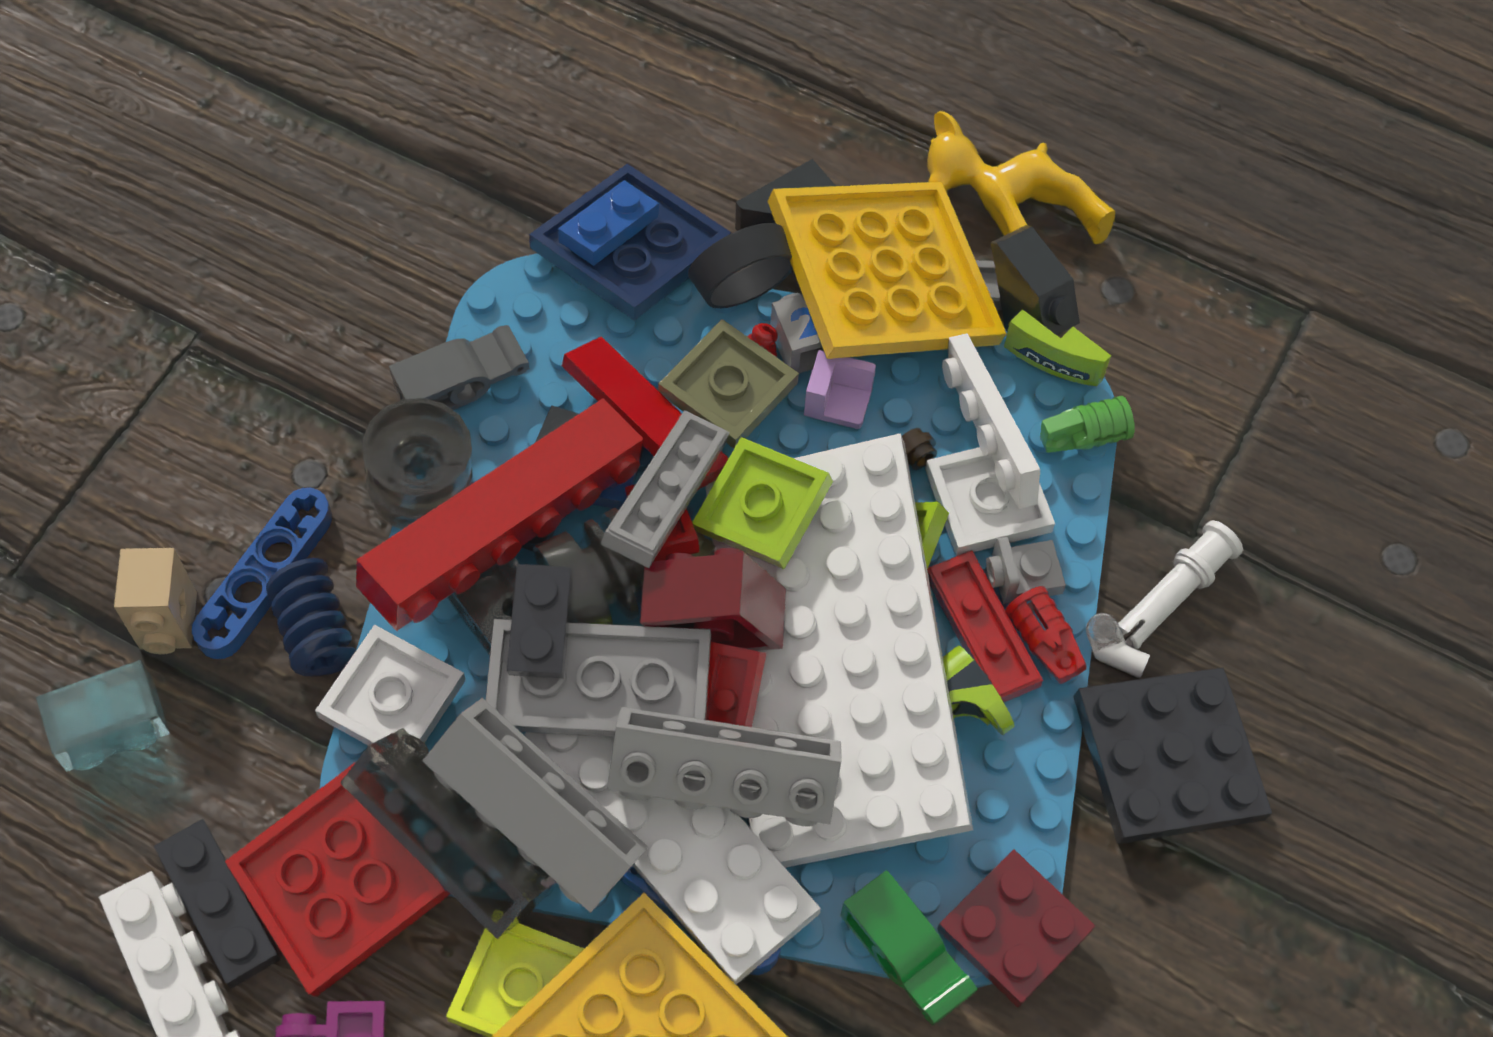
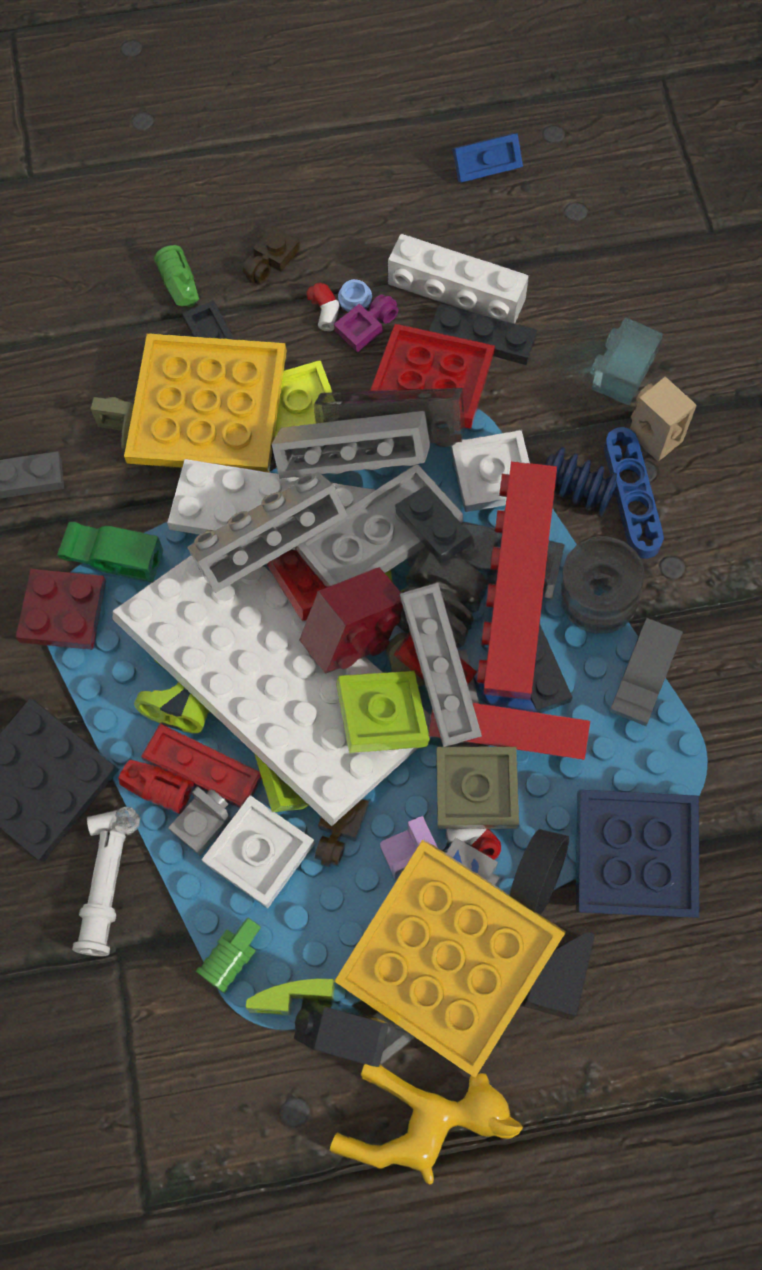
camera: 145 degrees right, 5 degrees up
(608, 222) = (658, 844): blue plate -> none
(996, 428) = (303, 898): white plate -> none

